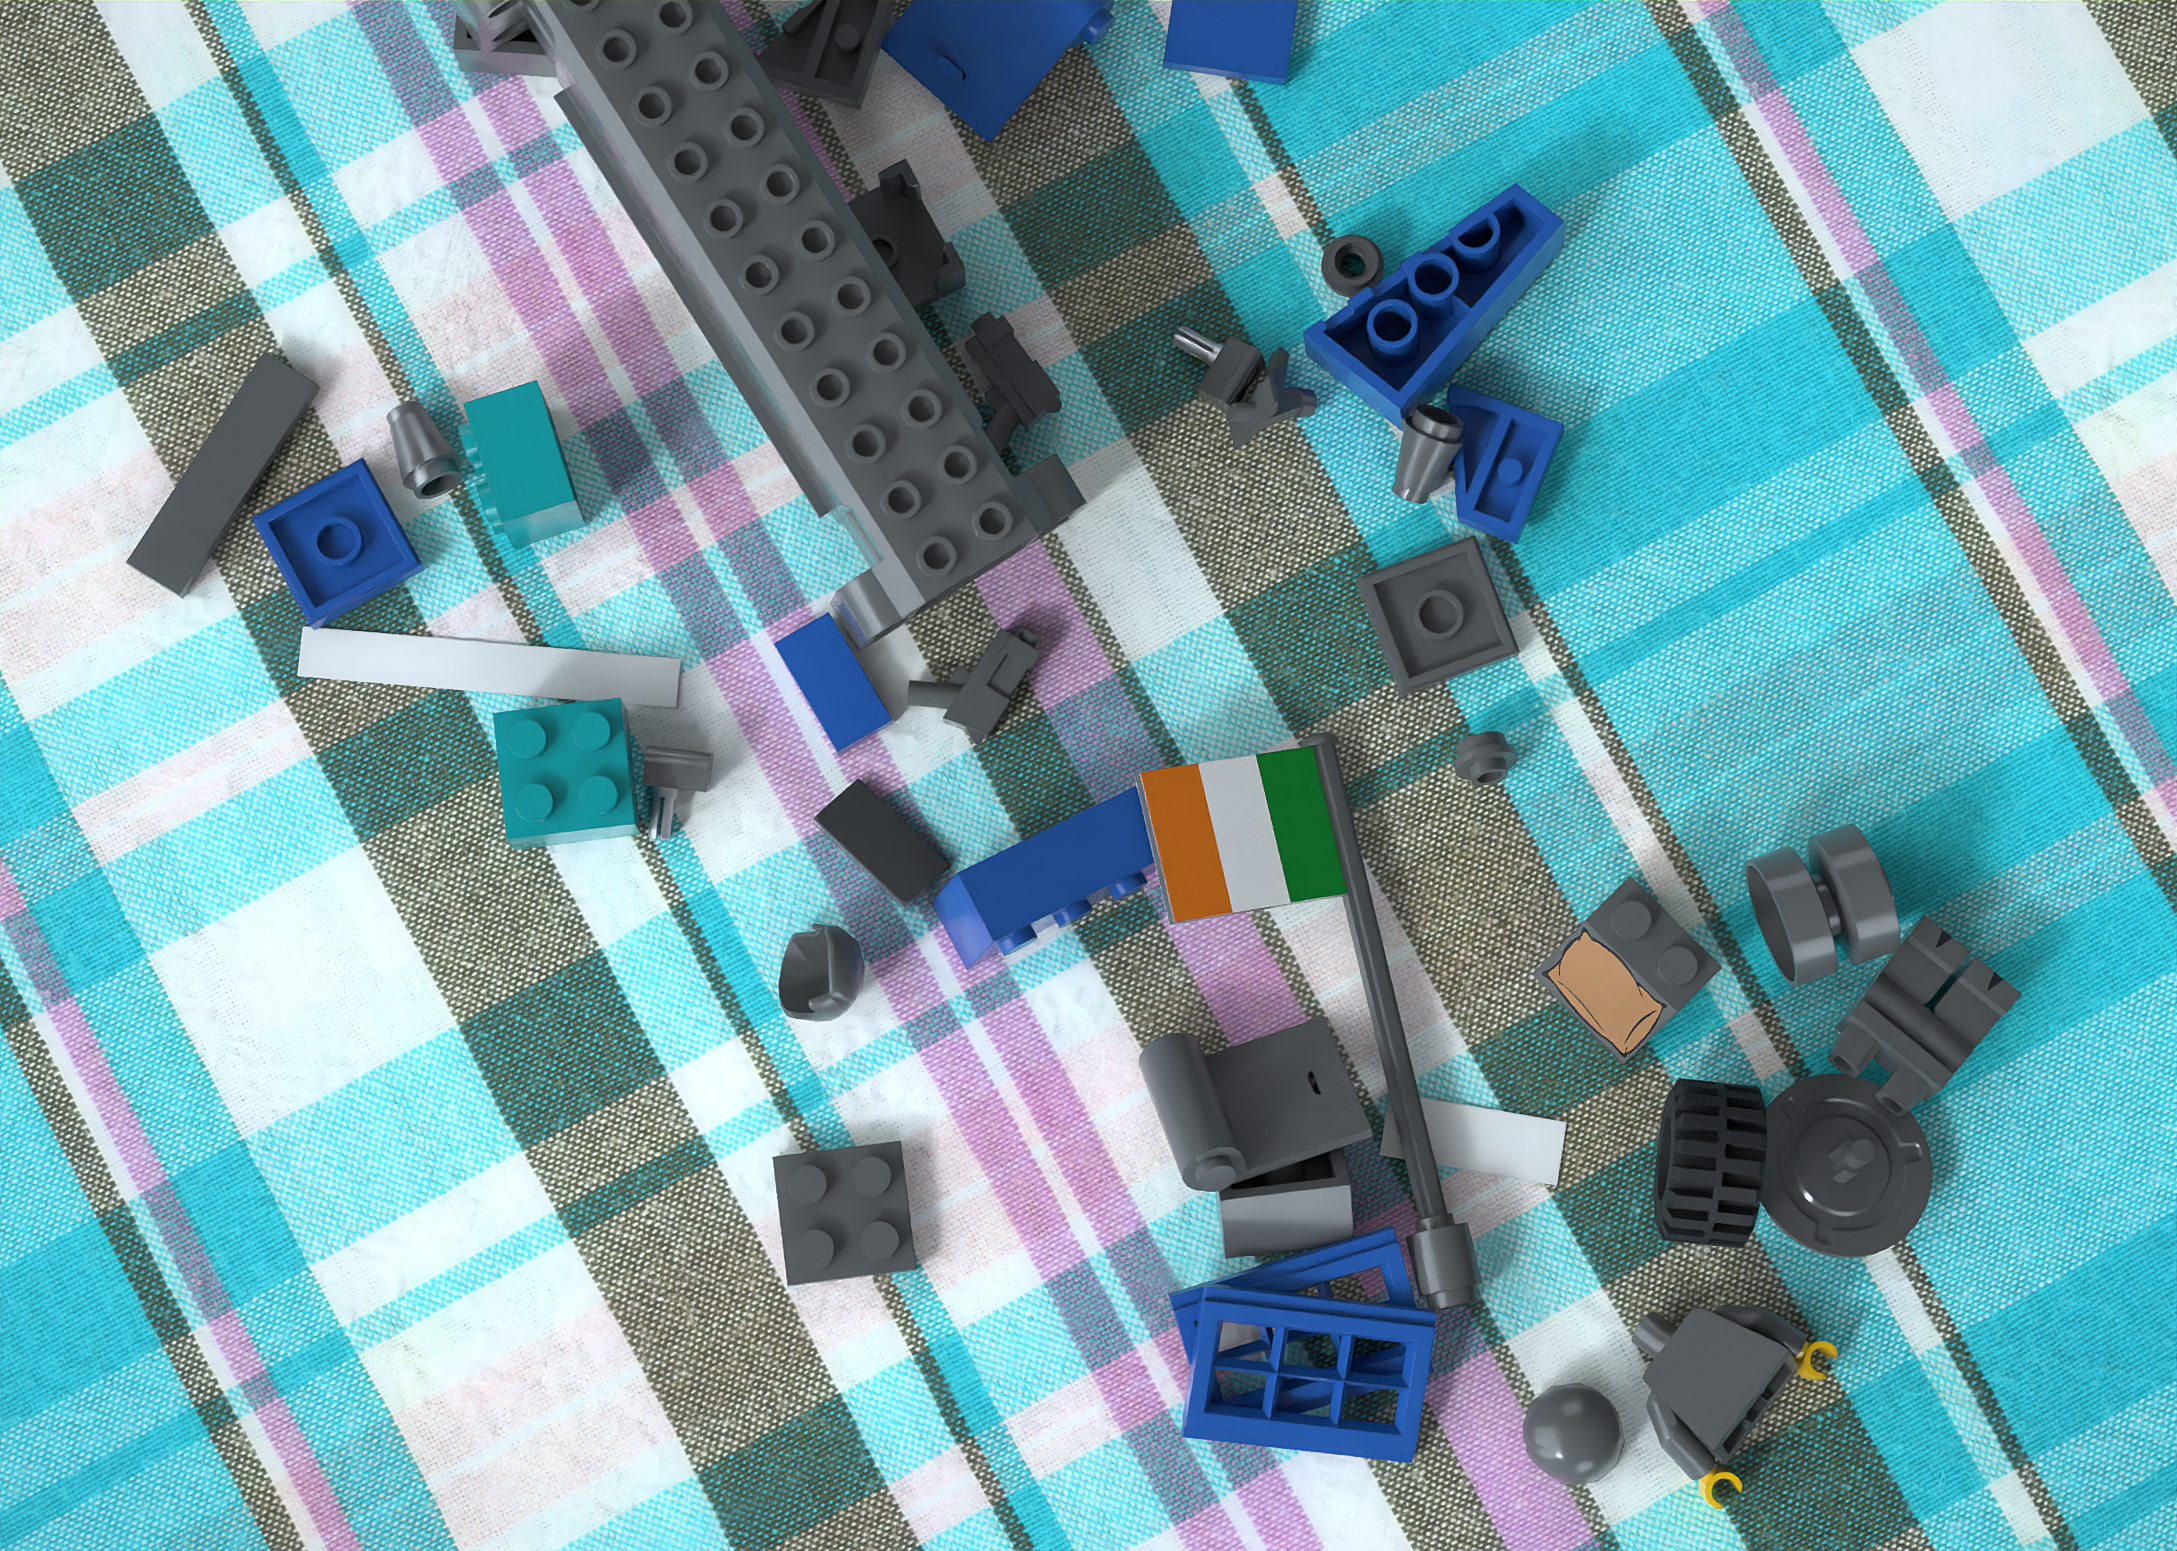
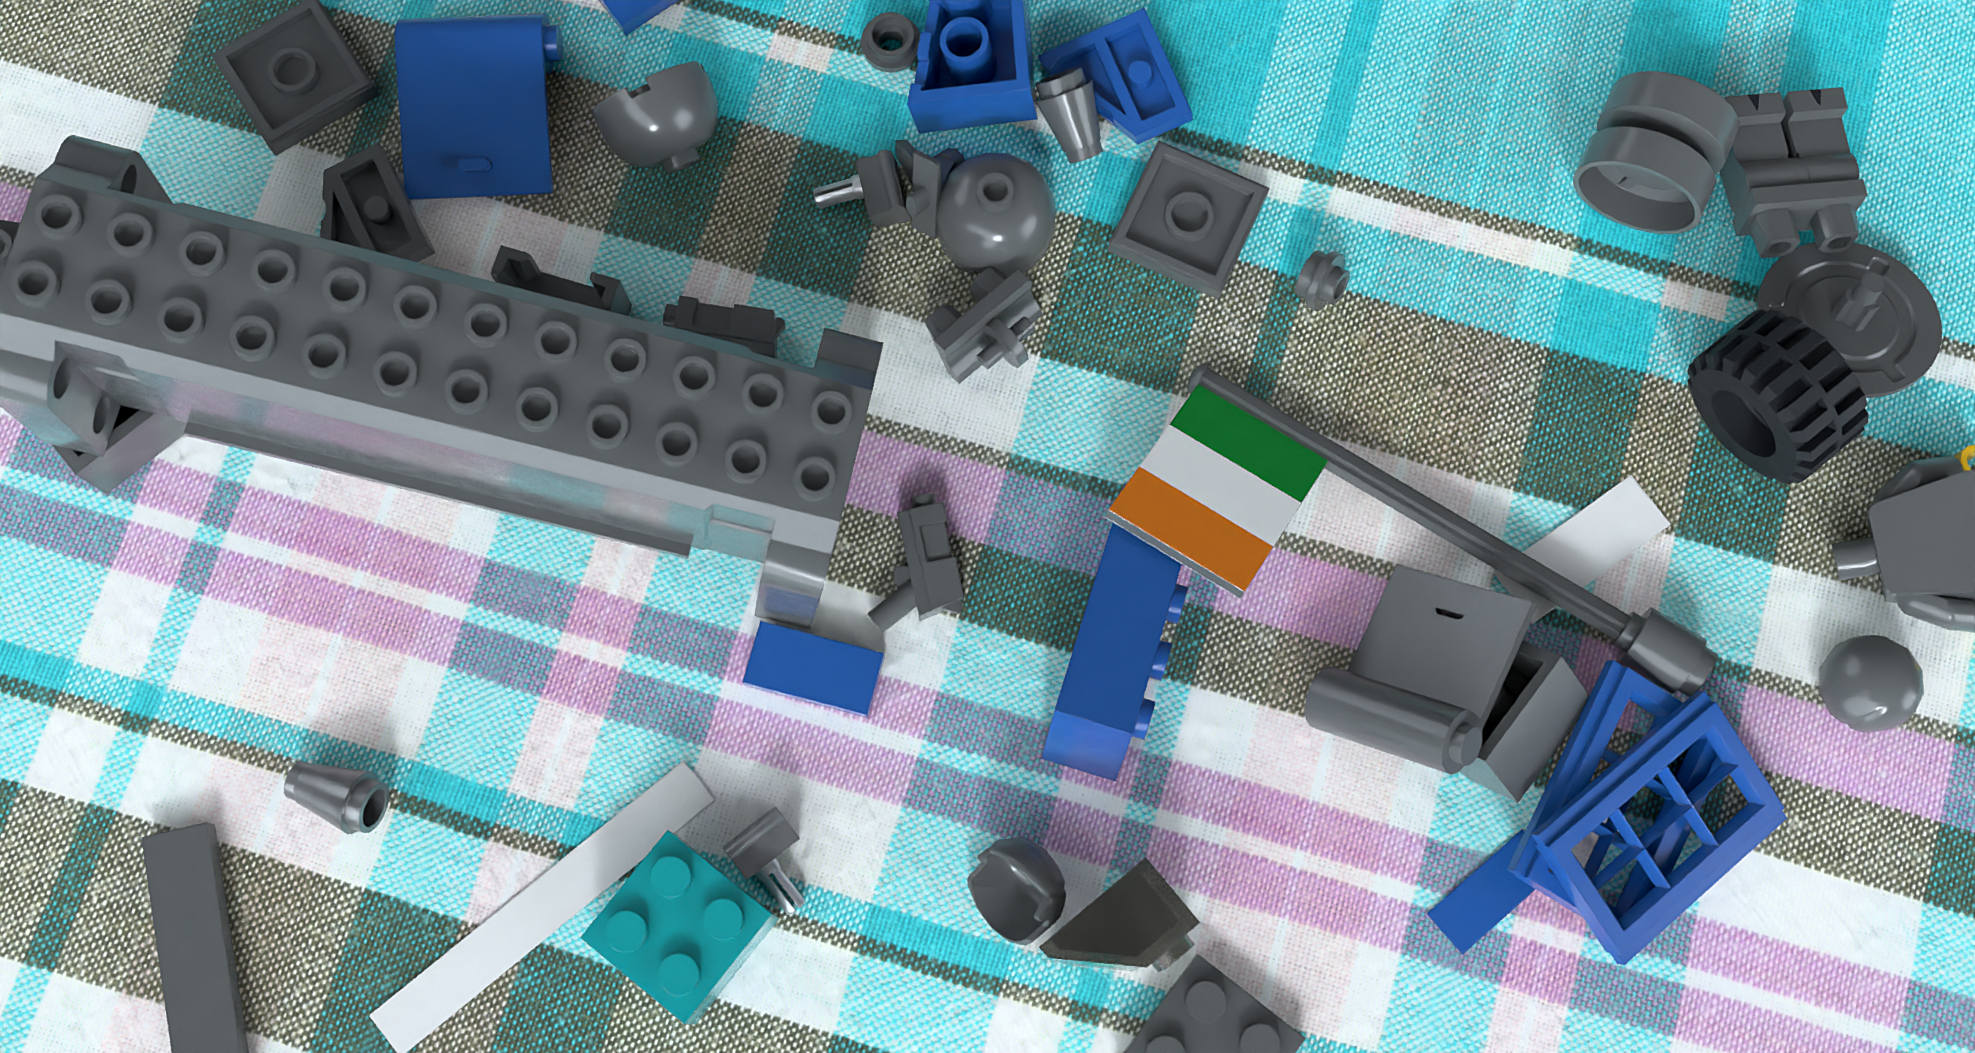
camera: 40 degrees left, 5 degrees down
(338, 544) = (337, 927): blue tile -> none
(524, 465) = (411, 721): teal brick -> none
(863, 1067) = (1126, 927): none -> clear smoke slope
(881, 844) = (964, 751): dark grey slope -> none
(1116, 169) = (661, 119): none -> dark grey cylinder
(1132, 1304) = (1481, 899): none -> blue sticker
(1202, 557) = (988, 329): none -> dark grey hips
(1294, 476) = (995, 214): none -> dark grey cylinder
(1626, 970) = (1568, 326): slope -> none

